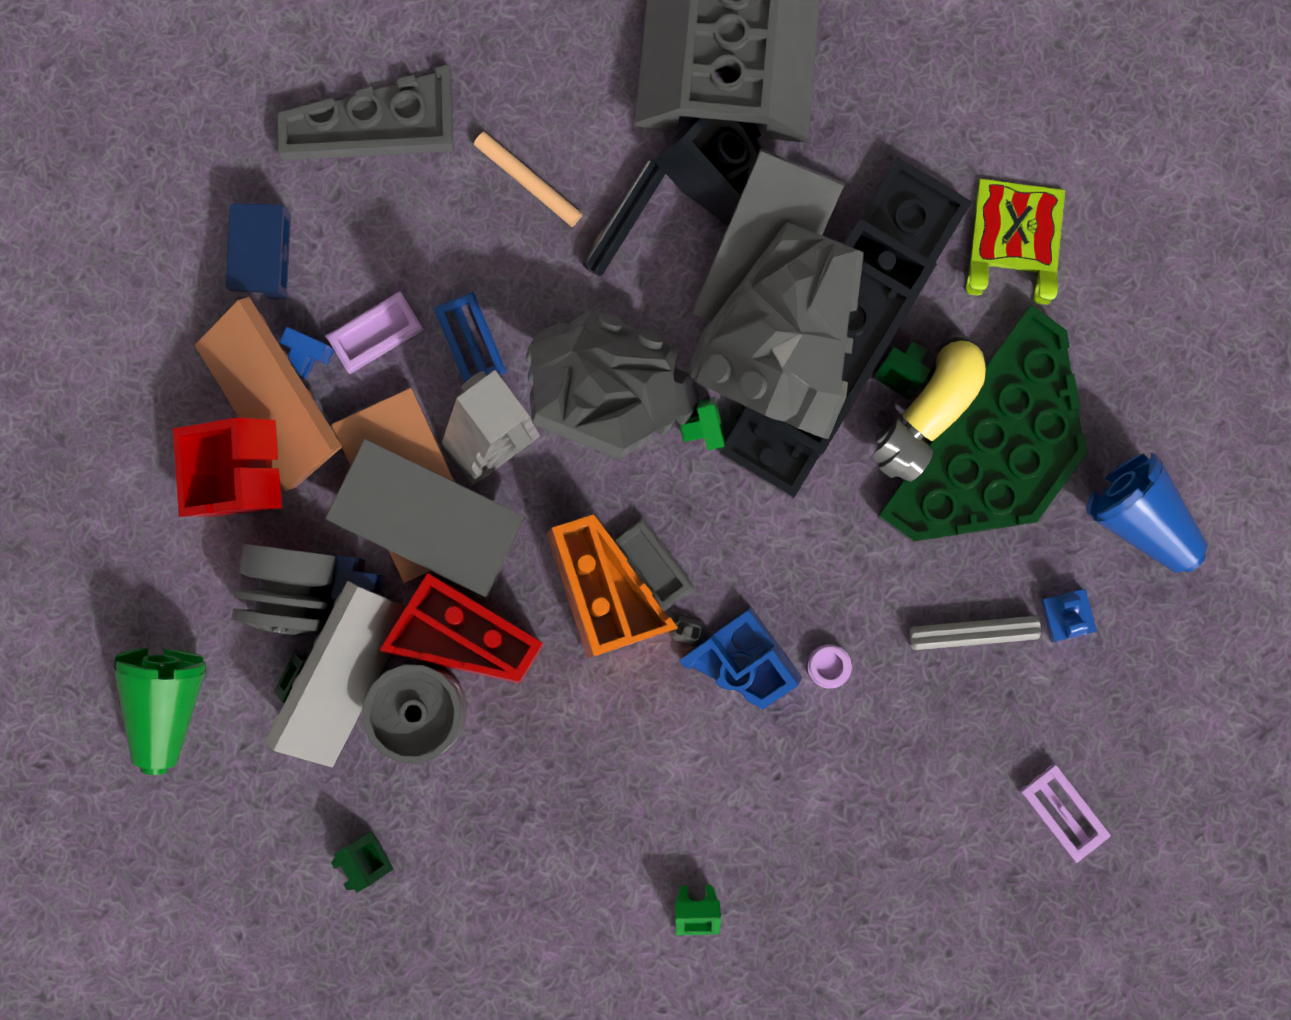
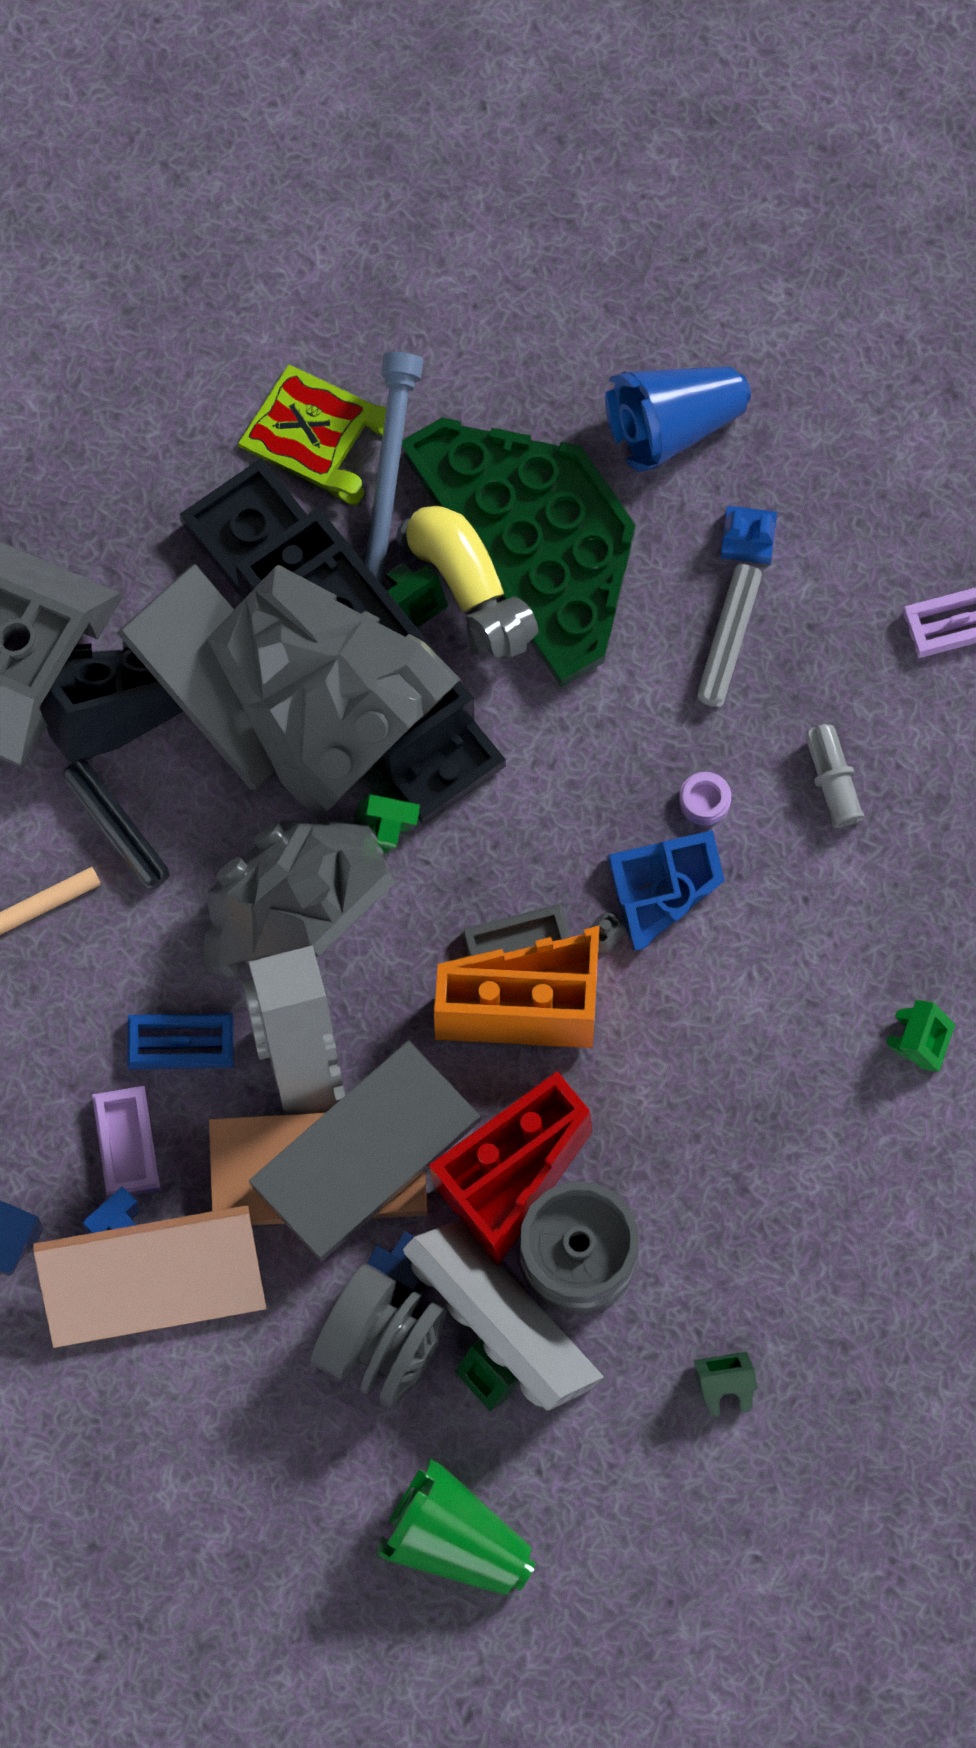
camera: 65 degrees left, 15 degrees down
(226, 467) = (215, 1347): red piece -> none
(887, 762) = (834, 776): none -> light grey axle
(1086, 283) = (400, 374): none -> sand blue piece

